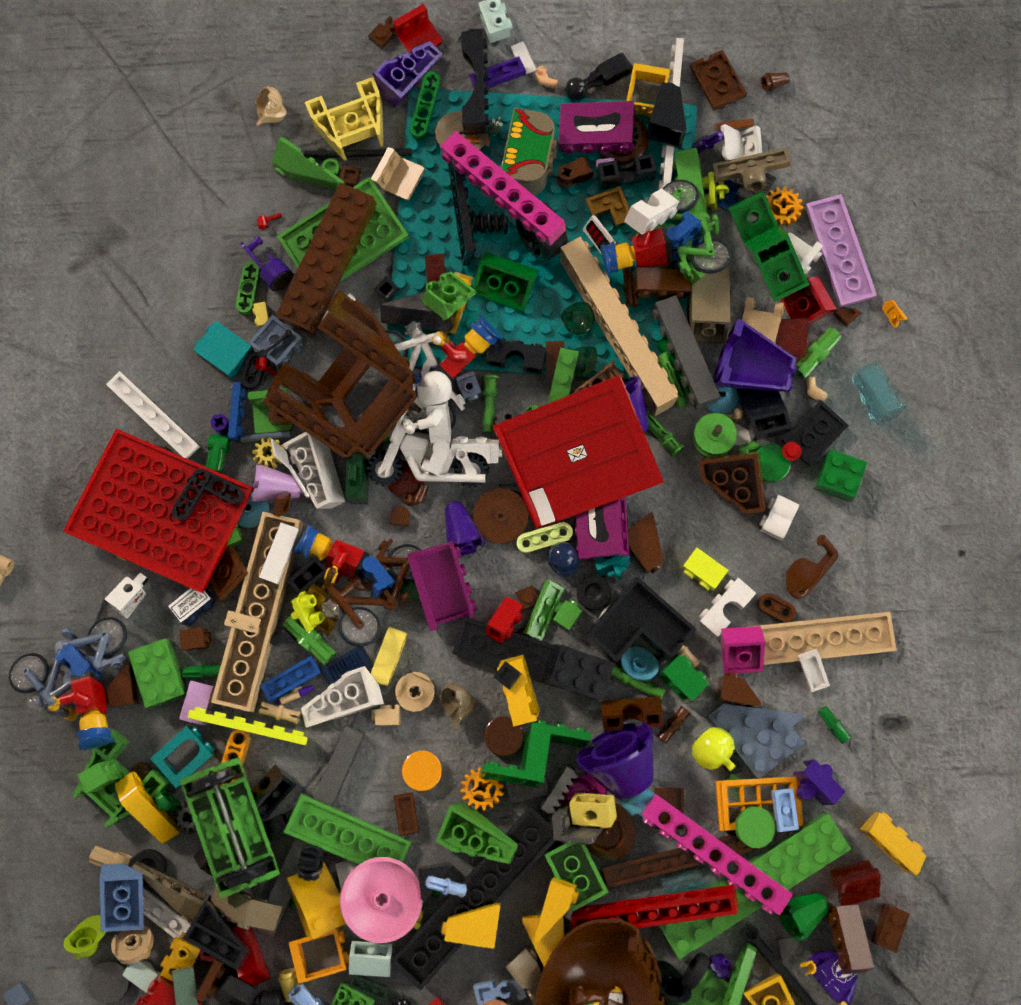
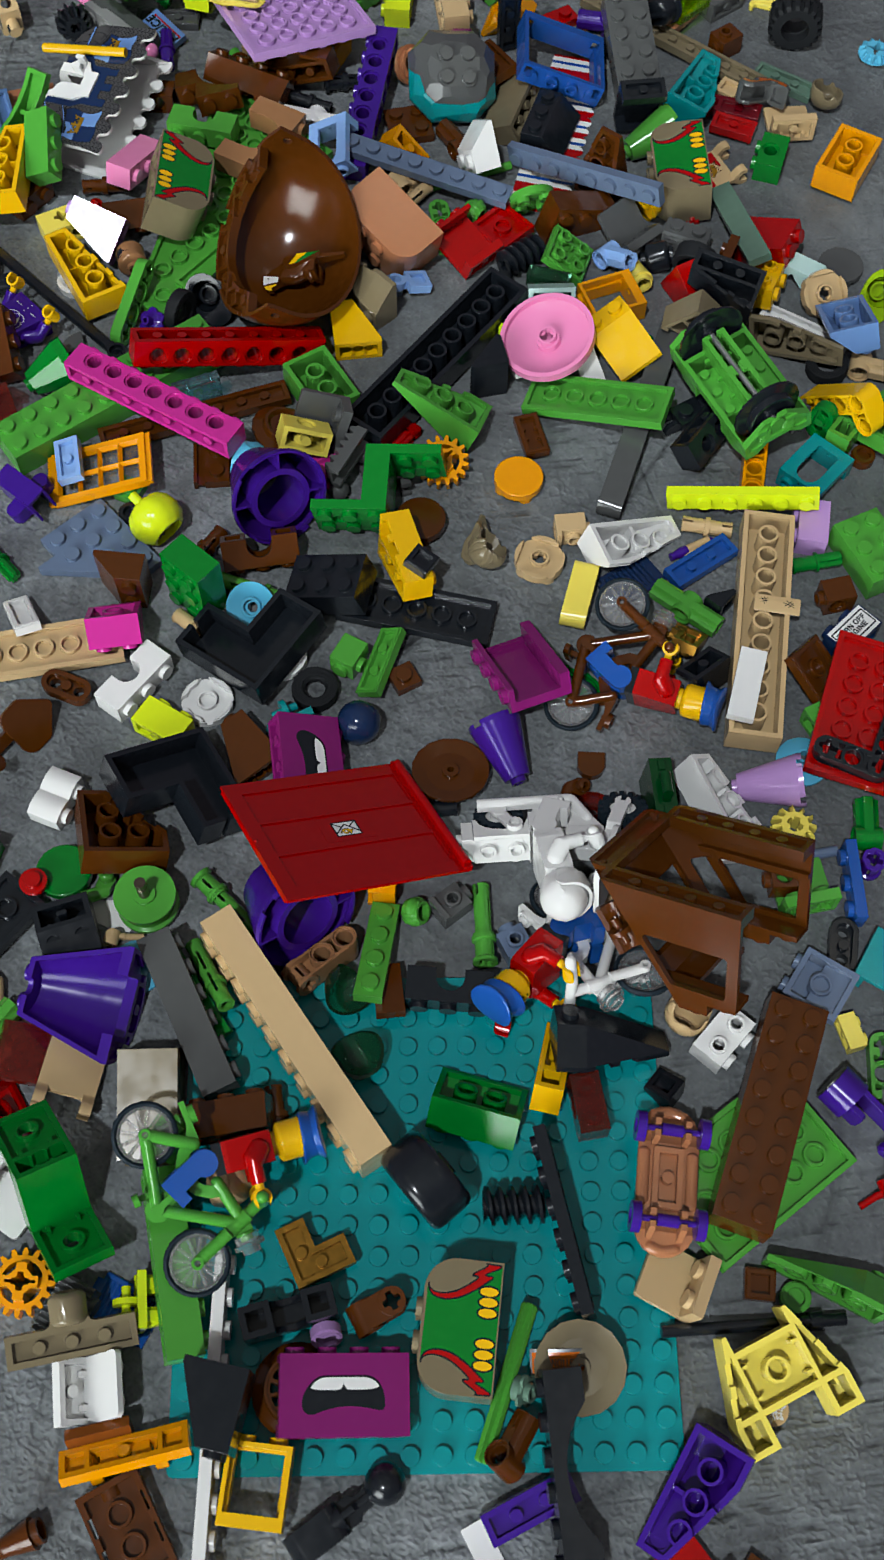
camera: 170 degrees right, 15 degrees down
(262, 365) = (833, 949): red hand -> none
(263, 353) = (833, 961): black hinge -> none
(282, 455) = (772, 810): white piece -> none
(282, 503) = (757, 749): reddish brown tile -> none
(305, 611) = (695, 623): neon yellow hips -> none
(310, 862) = (636, 362): black gear -> none
(395, 225) = (667, 1181): none -> nougat piece
(425, 106) = (656, 1425): green beam -> none
(446, 886) = (473, 347): light blue axle -> none
(447, 295) = (564, 1049): bright green slope -> none
(458, 145) = (593, 1286): dark pink brick -> none
(473, 927) = (437, 316): yellow slope -> none
(503, 99) = (507, 1454): none -> reddish brown piece
(503, 133) = (508, 1372): none -> bright green axle
(504, 619) = (431, 640): red brick -> none
(513, 816) = (406, 437): none -> red axle
(542, 506) = (391, 780): white sticker -> none
(543, 78) = (445, 1508): light nougat arm -> none
(551, 532) = (394, 742): yellowish green plate -> none
(558, 901) = (341, 342): yellow slope -> none
(597, 233) = (330, 1198): slope -> none
(657, 210) = (226, 1213): white arch -> none
(674, 588) = (207, 701): none -> white tile
(690, 522) = (178, 771): none -> black piece
(708, 141) = (147, 1388): dark purple axle -> none
(720, 112) = (124, 1454): none -> light orange hinge
(755, 827) = (106, 438): bright green tile -> none

